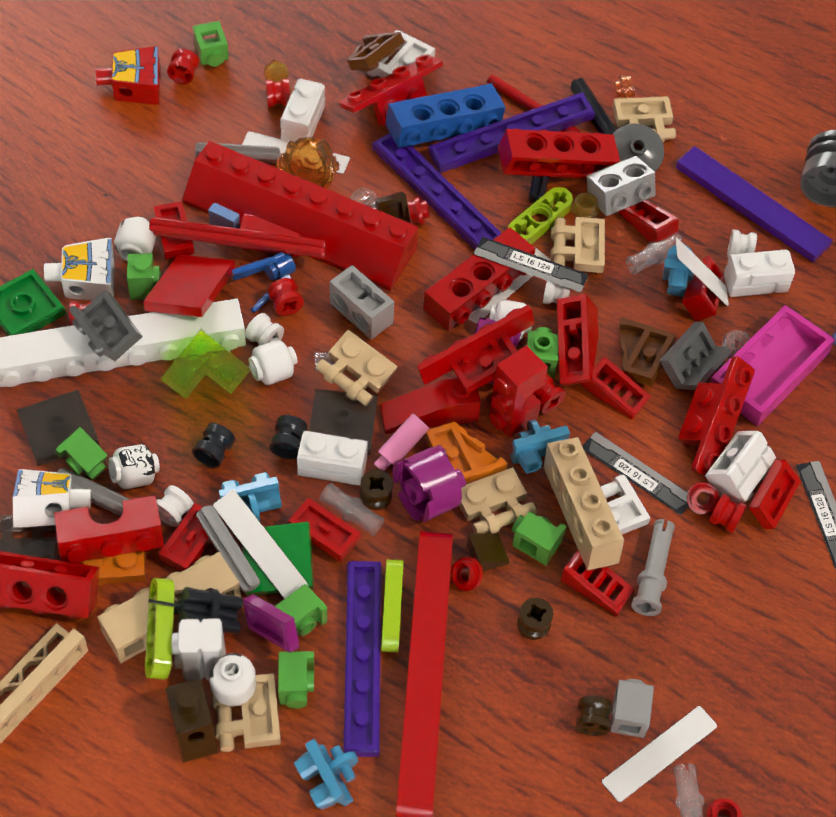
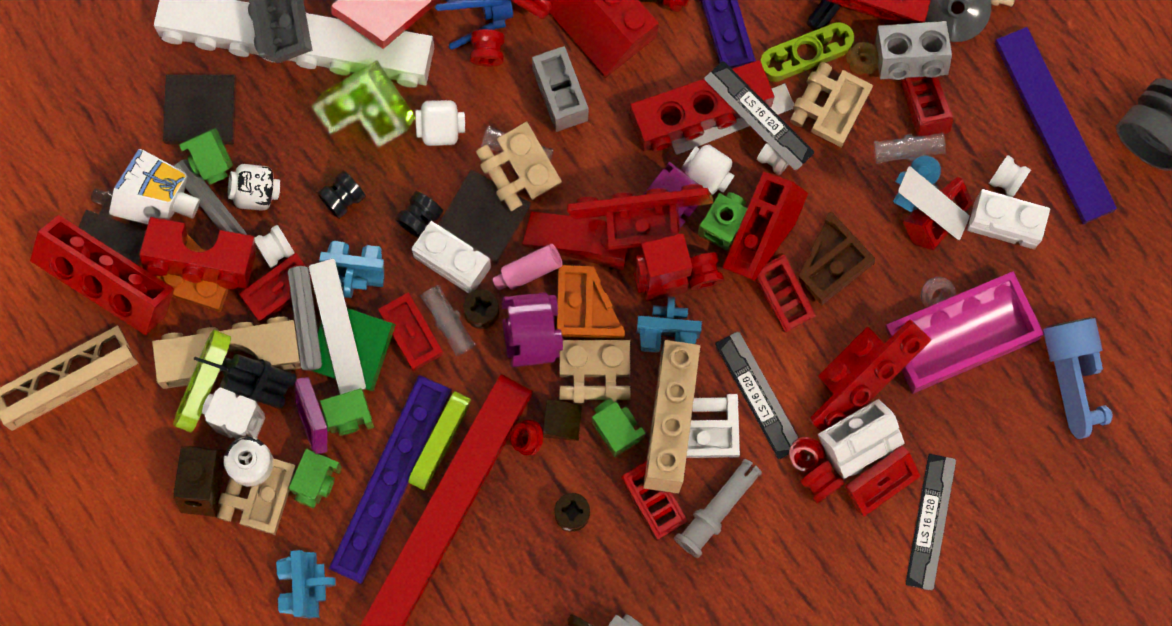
camera: 25 degrees right, 20 degrees up
(263, 330) = (447, 82): white wheel -> none
(693, 358) = (881, 293): dark grey bracket -> none

